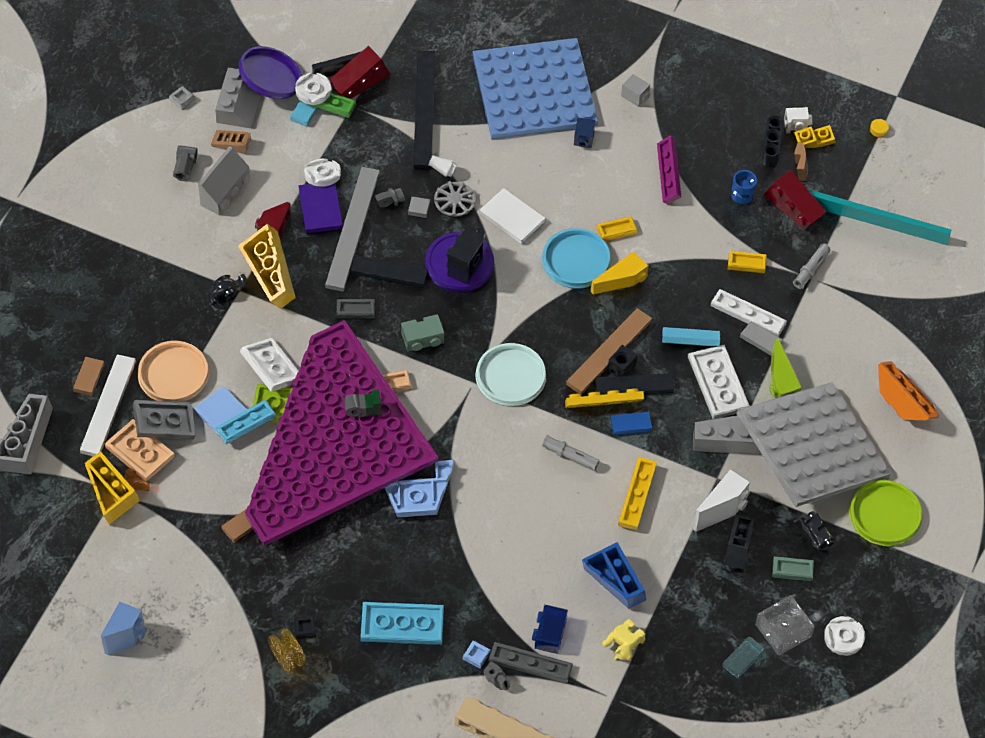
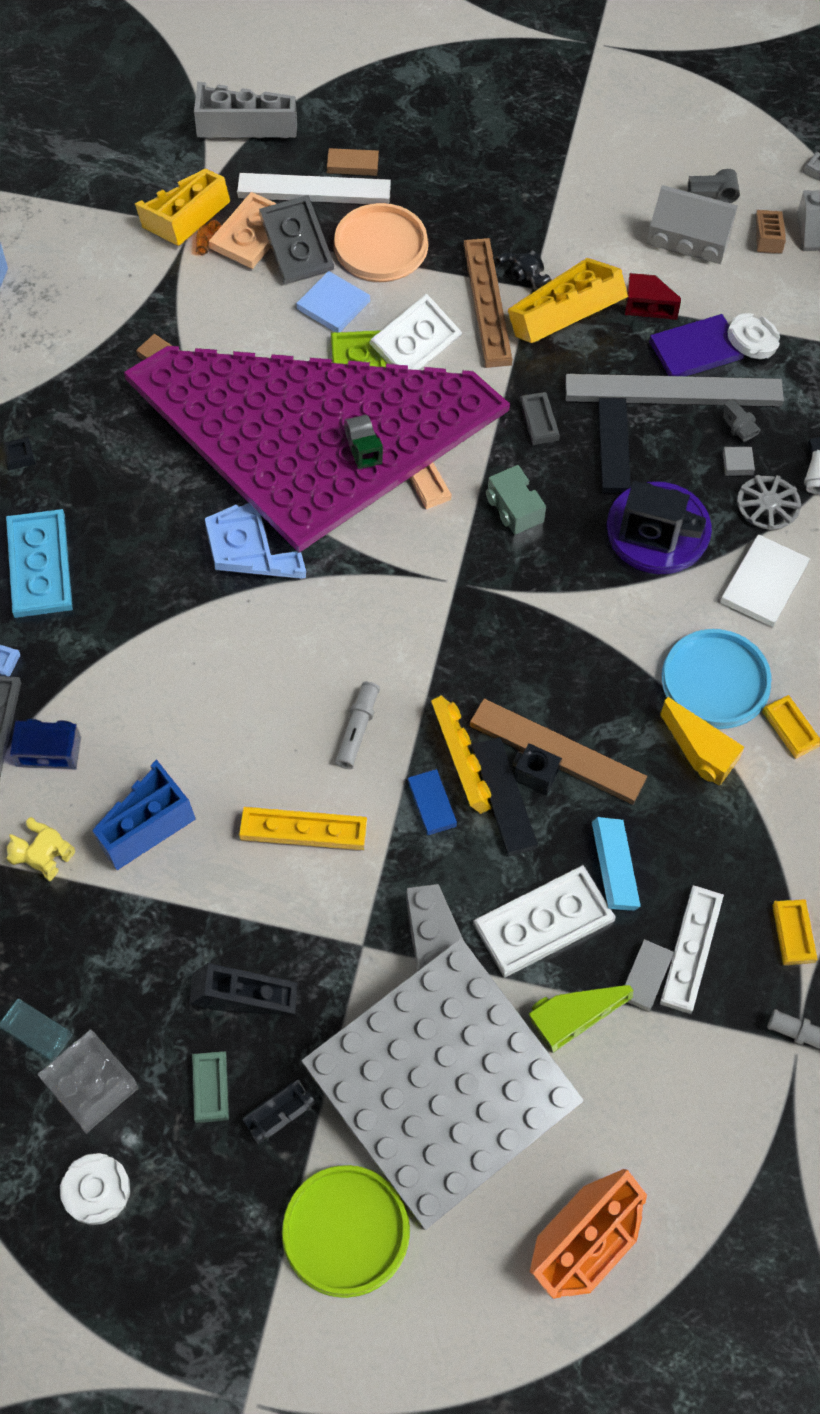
camera: 80 degrees right, 5 degrees up
(245, 422) = (316, 326): medium azure tile -> none
(246, 318) = (487, 303): none -> medium nougat tile
(510, 374) = (479, 625): light aqua brick -> none
(723, 501) = (306, 951): white slope -> none

